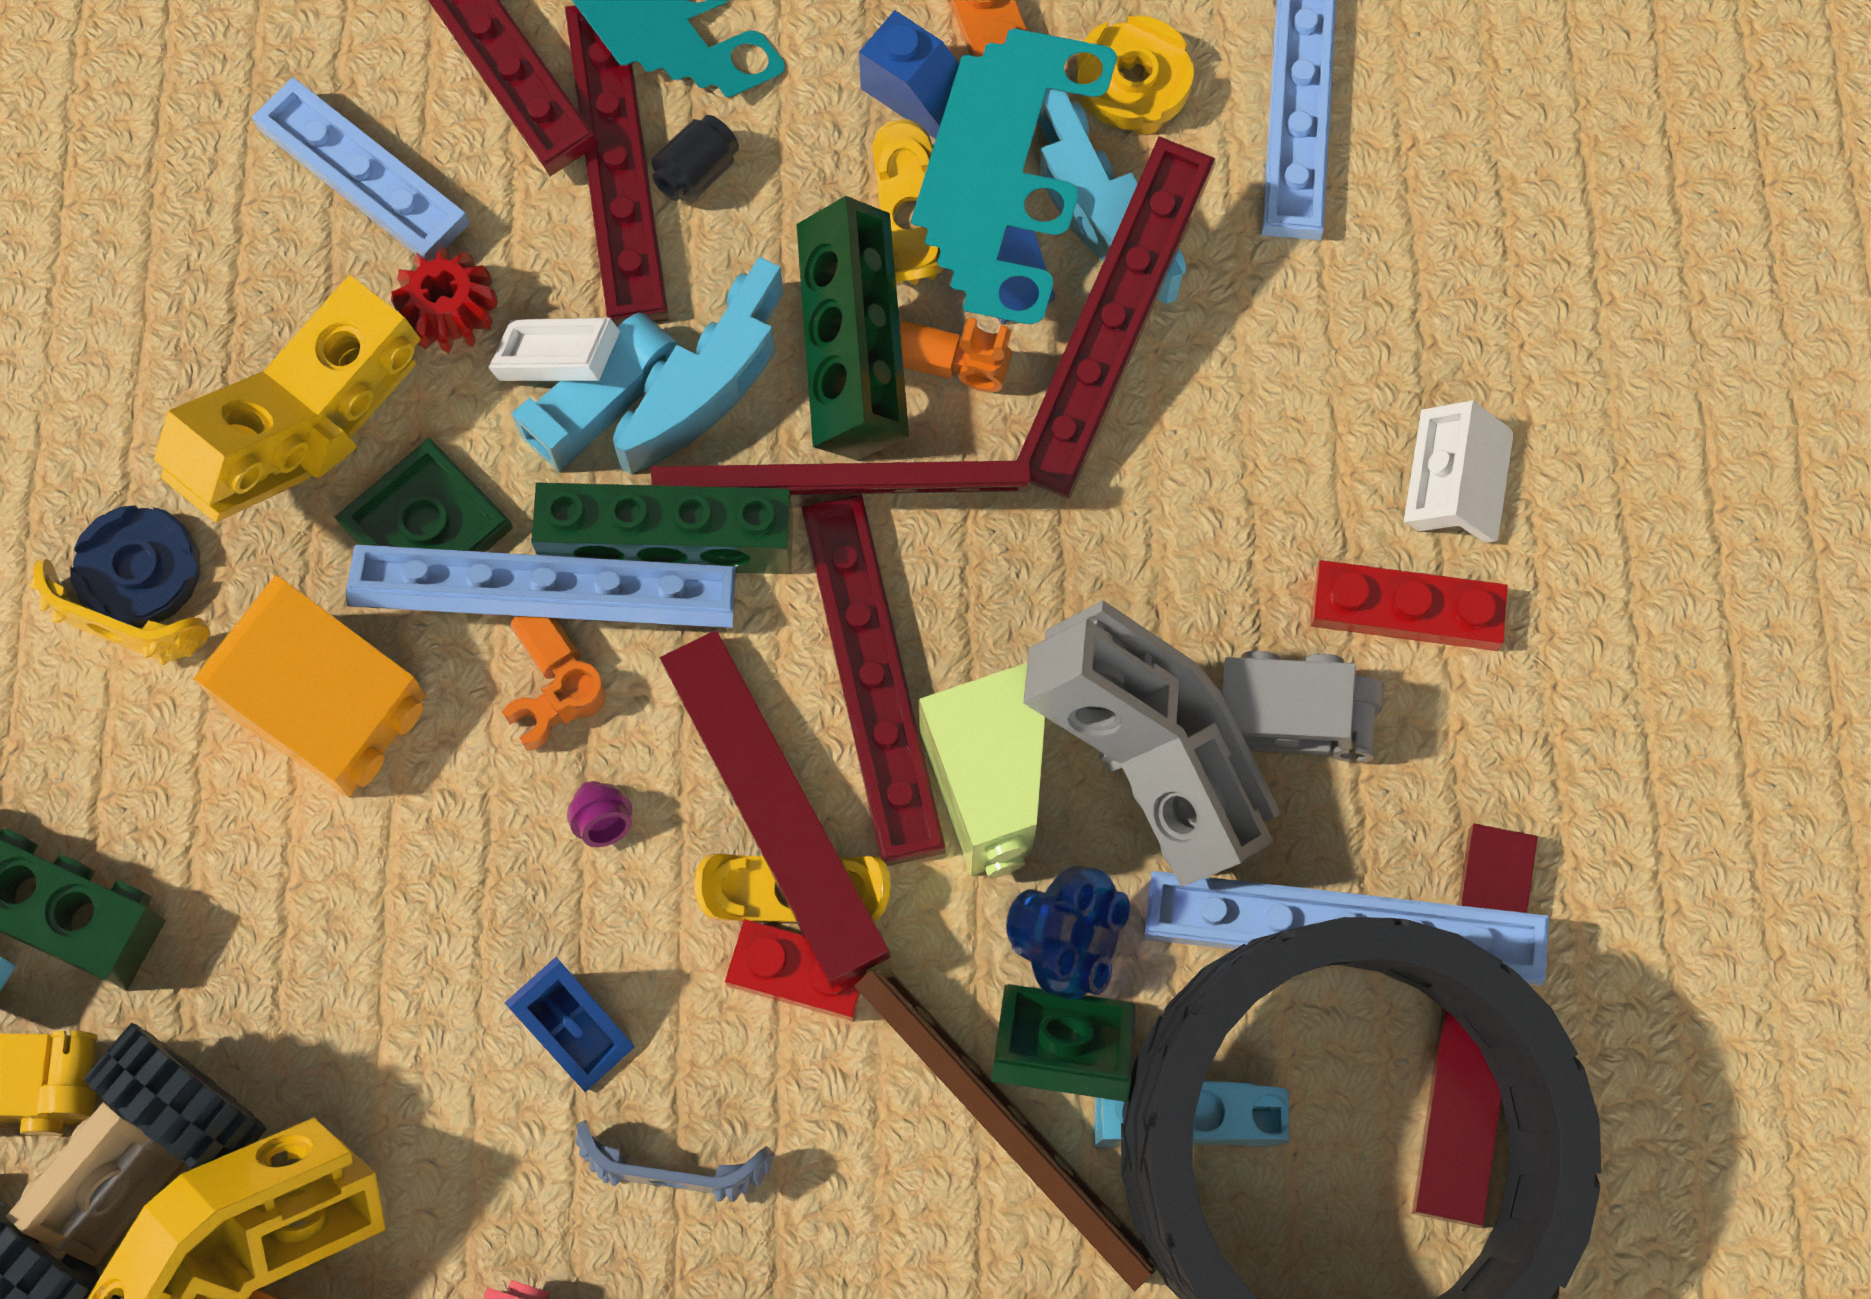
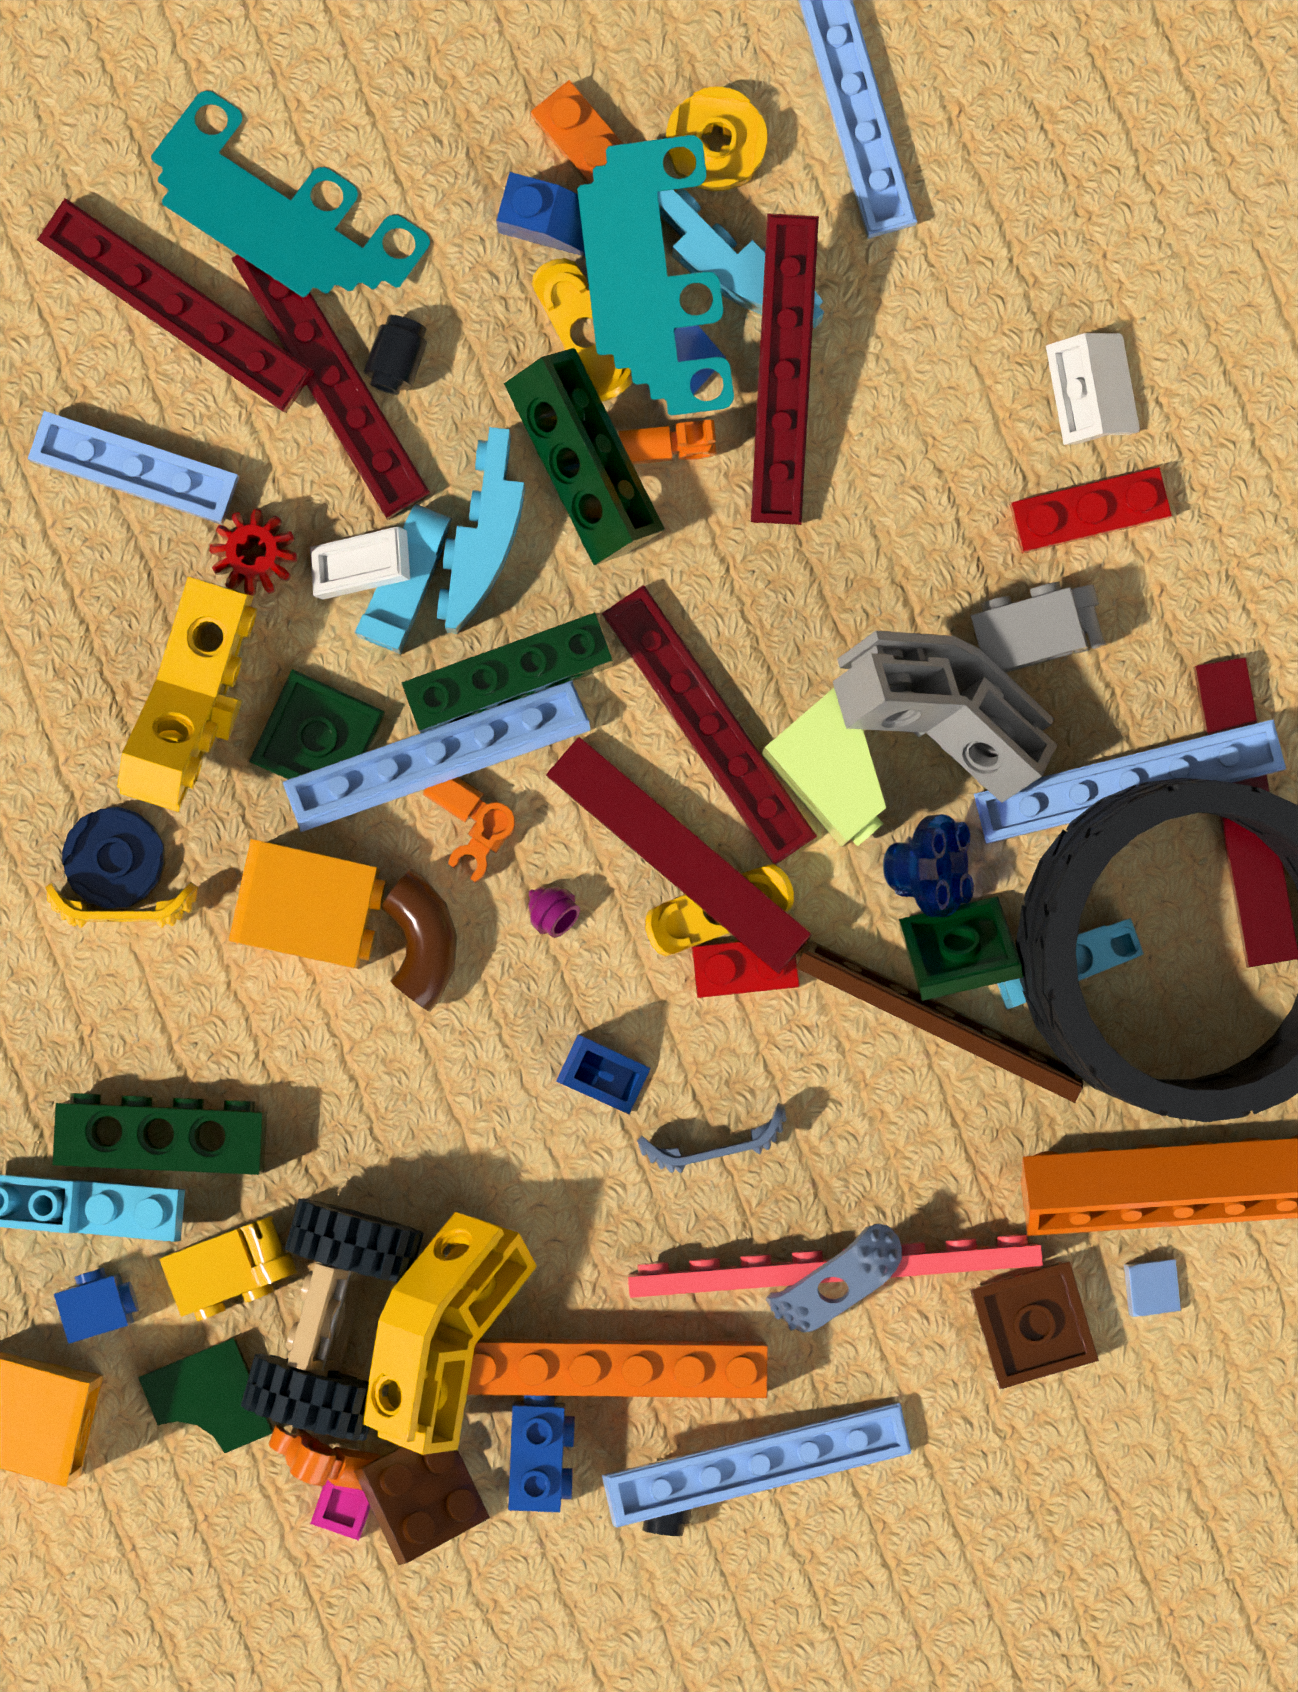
camera: 25 degrees left, 15 degrees up
(440, 786) = (428, 937): none -> reddish brown cylinder
(856, 477) = (627, 582): dark red tile -> none

